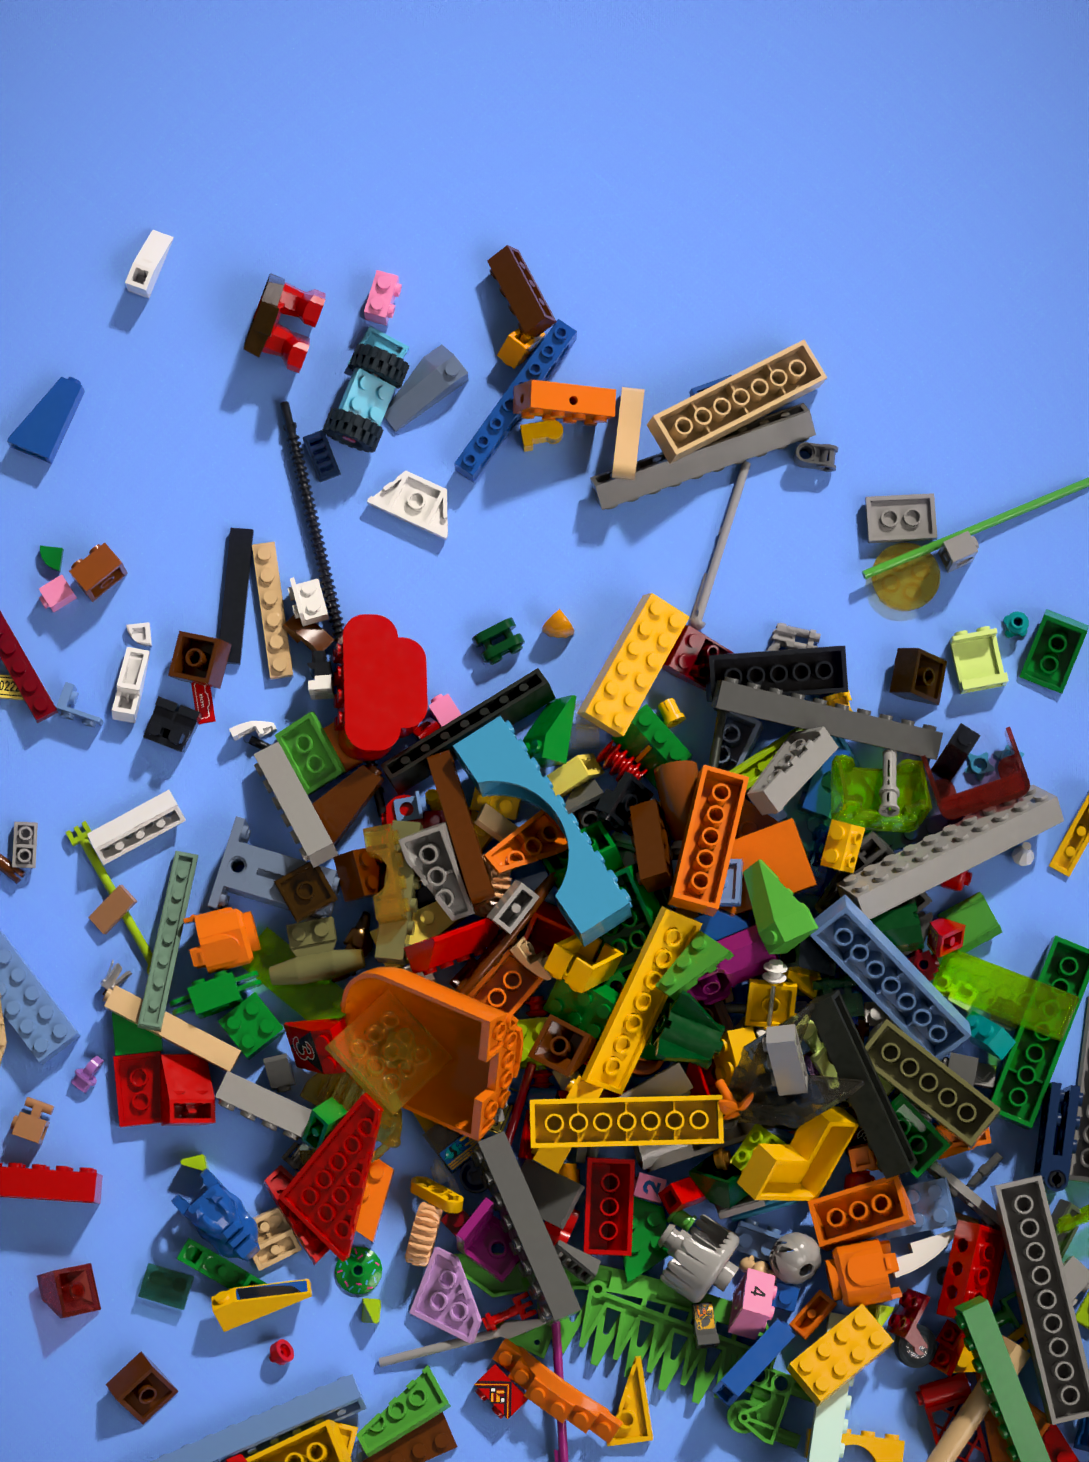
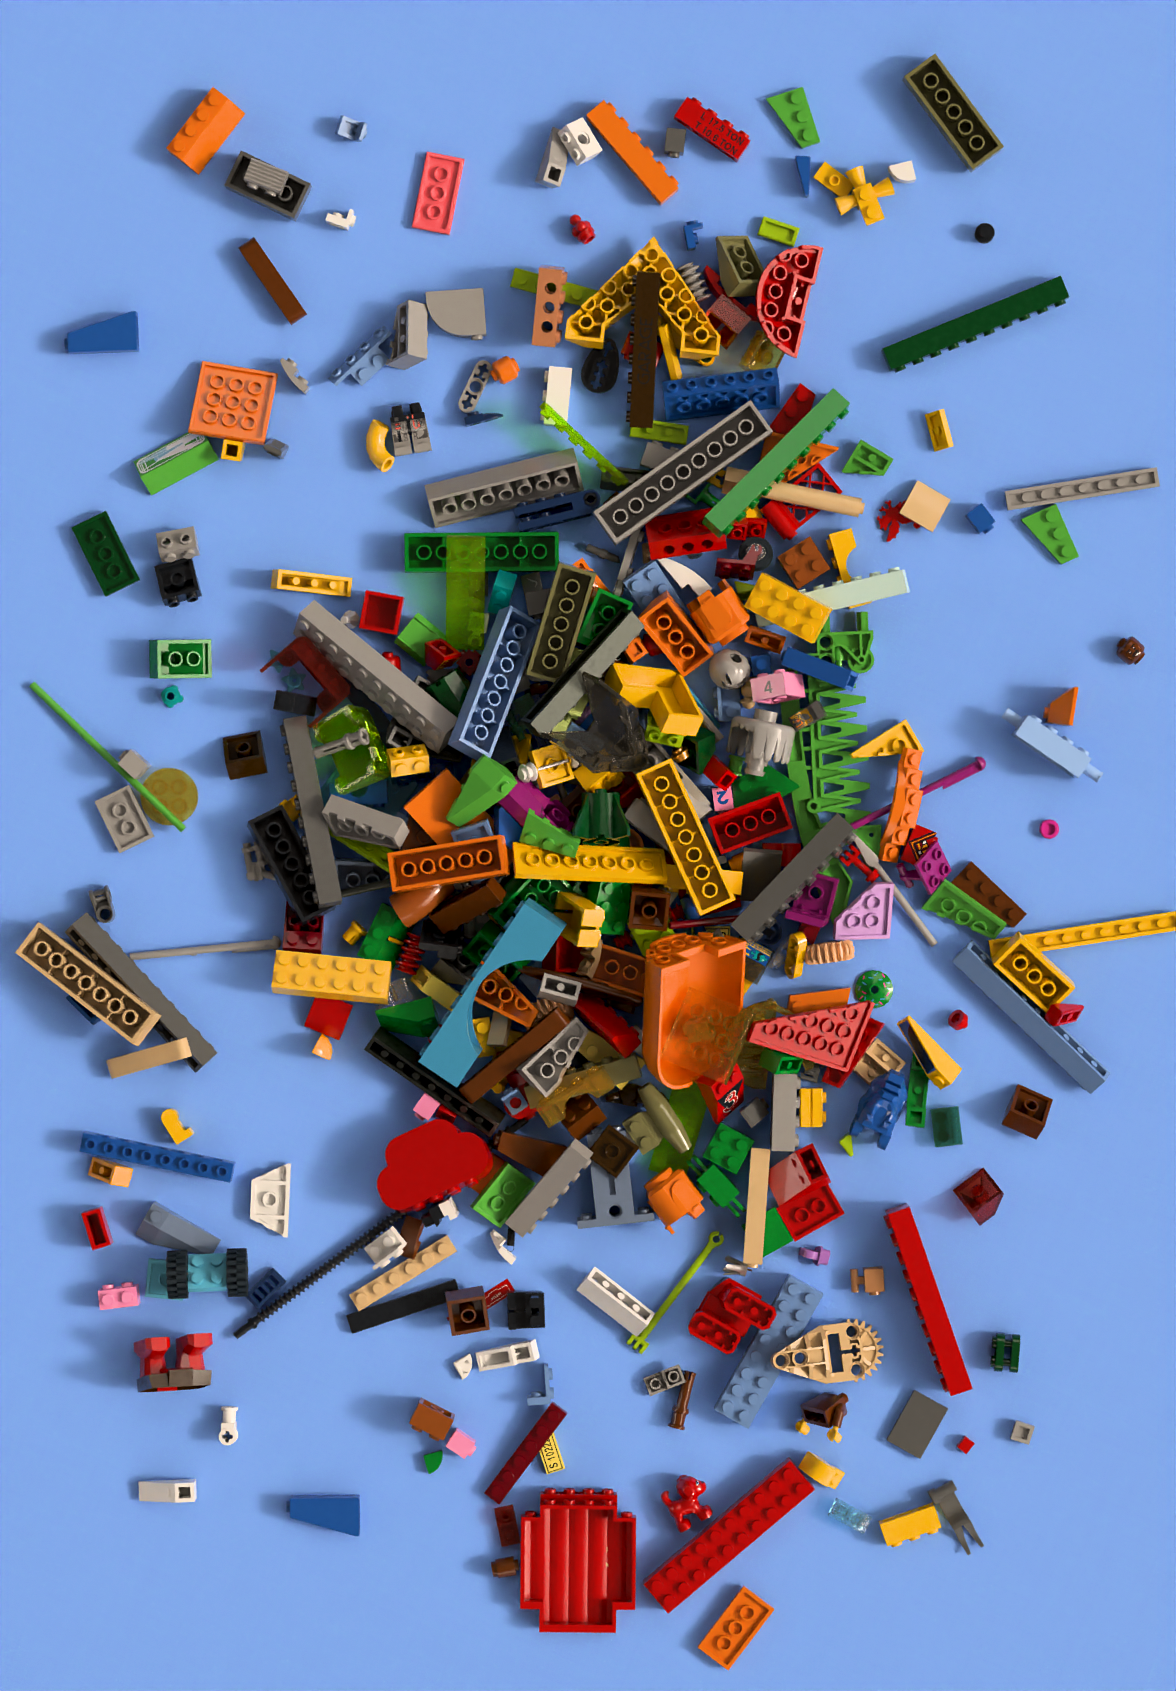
camera: 110 degrees left, 10 degrees up
(65, 943) = (728, 1314): none -> red piece
(112, 909) = (685, 1291): medium nougat tile -> none
(167, 941) = (692, 1238): sand green tile -> none
(190, 355) = (228, 1424): none -> white connector
(256, 1139) = (811, 1107): none -> yellow brick
(371, 1310) = (899, 967): lime slope -> none
(466, 305) = (97, 1228): none -> red piece
(469, 1393) = (930, 869): none -> magenta plate
(494, 653) = (365, 1088): dark green brick -> none
(521, 291) = (68, 1189): reddish brown brick -> none
(564, 402) = (147, 1117): orange brick -> none
(577, 1262) = (801, 829): dark grey slope -> none
(589, 647) = (328, 1016): none -> red slope
(729, 1105) = (641, 763): orange plant -> none
(785, 1060) = (591, 737): light grey brick -> none
(882, 1397) = (803, 563): none -> dark orange brick
(977, 660) = (212, 714): yellowish green panel -> none
(1018, 891) = (381, 612): none -> red piece

